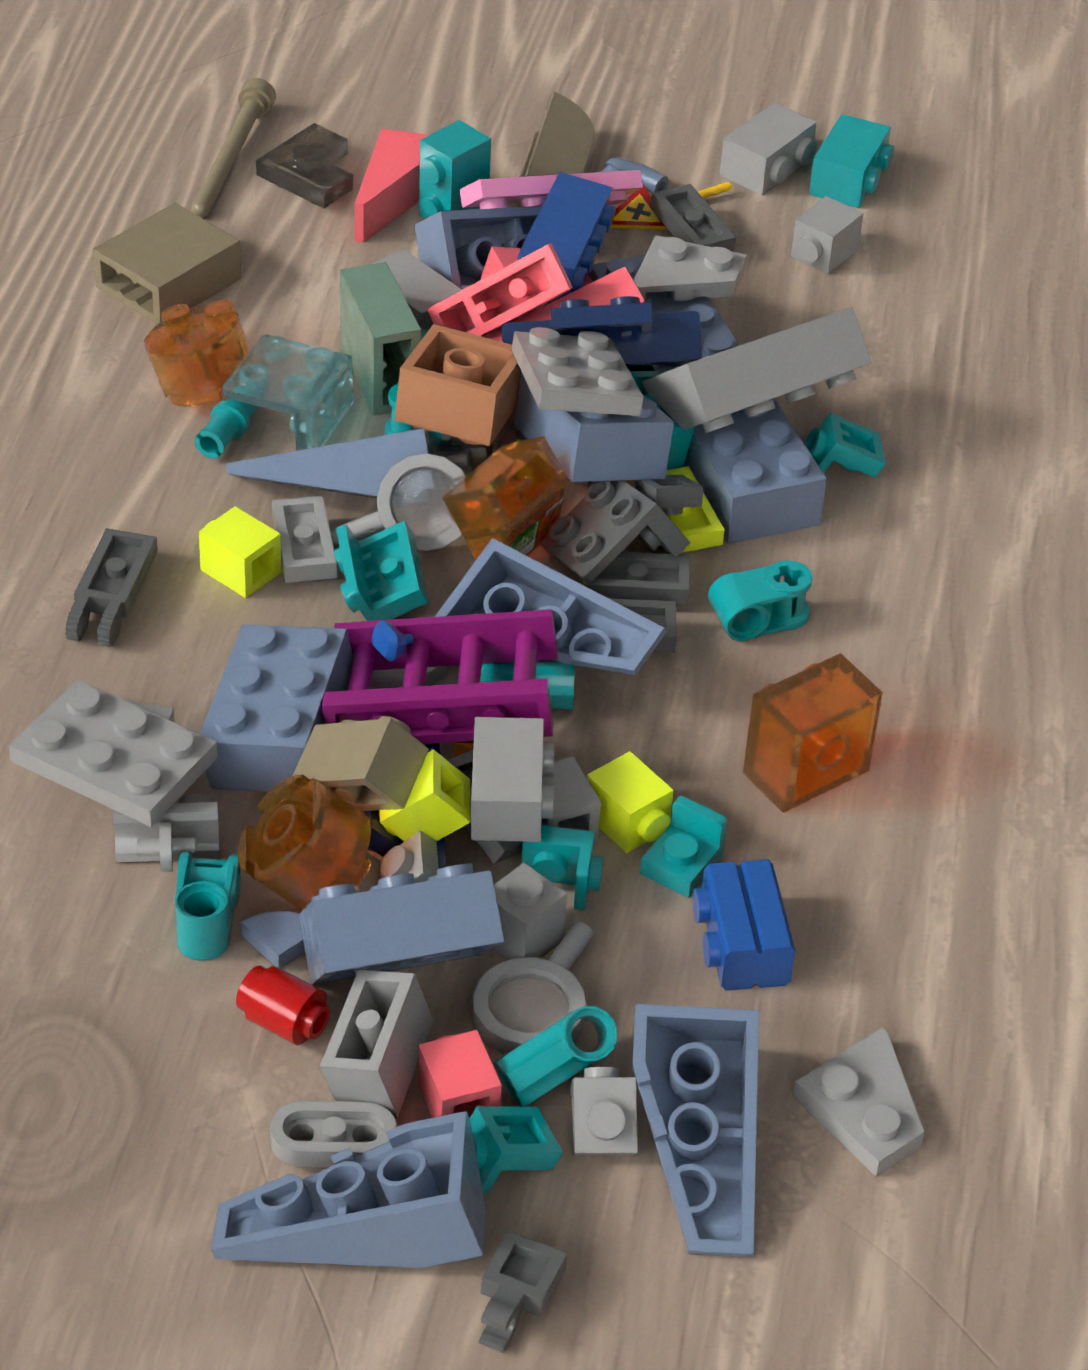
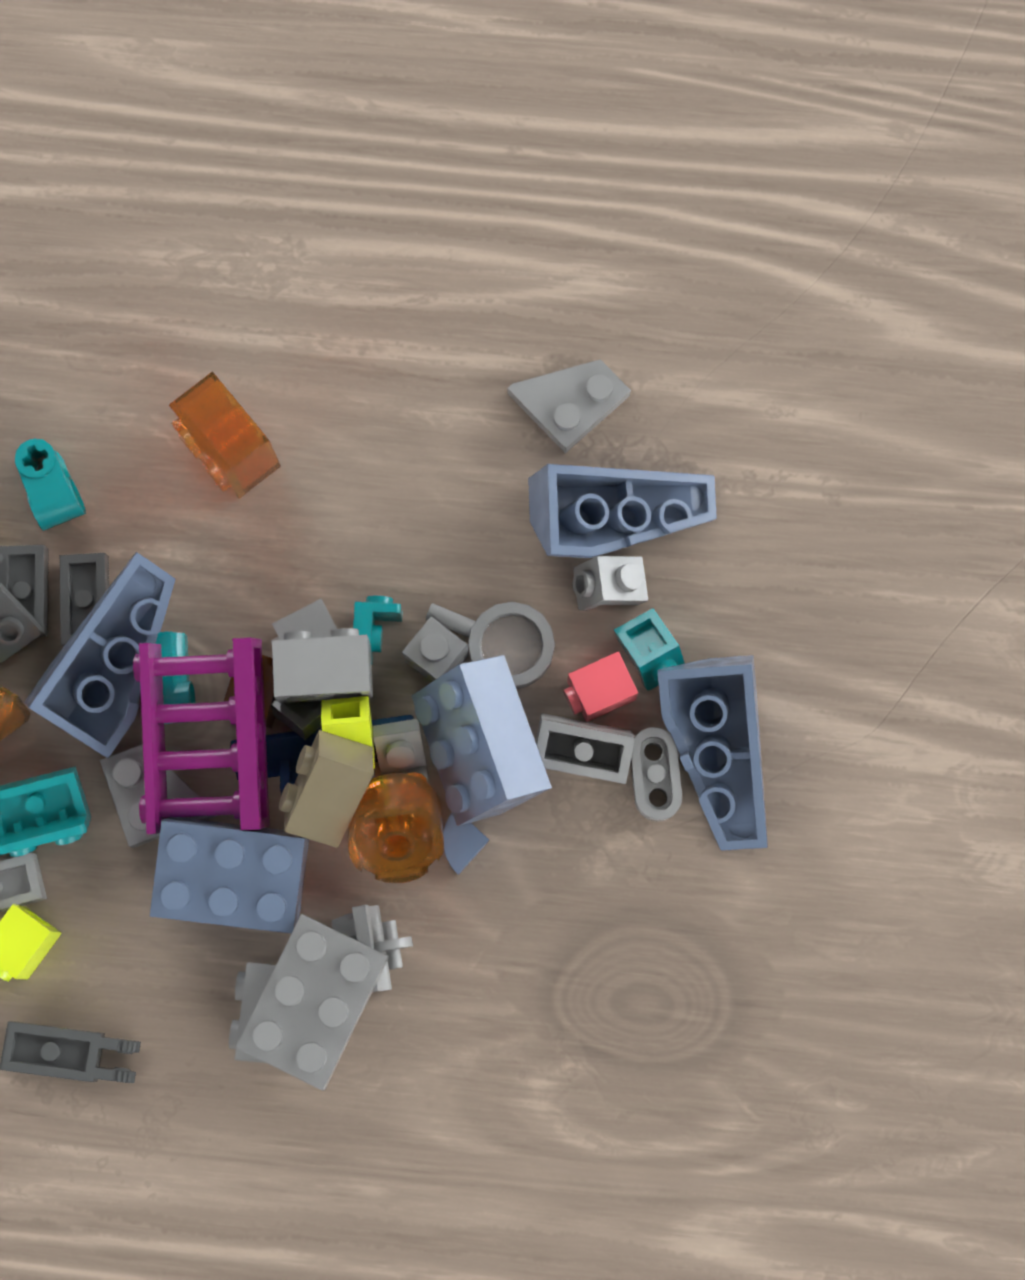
camera: 90 degrees left, 35 degrees up
(205, 904) = (435, 905): teal piece -> none
(283, 1004) = (541, 827): red brick -> none
(390, 640) = (171, 781): blue rock -> none
(518, 1279) = (764, 628): dark grey plate -> none
(552, 1056) = (562, 604): teal piece -> none
(633, 801) = (301, 578): neon yellow brick -> none
(686, 847) = (340, 537): teal bracket -> none
(745, 925) = (421, 487): blue brick -> none

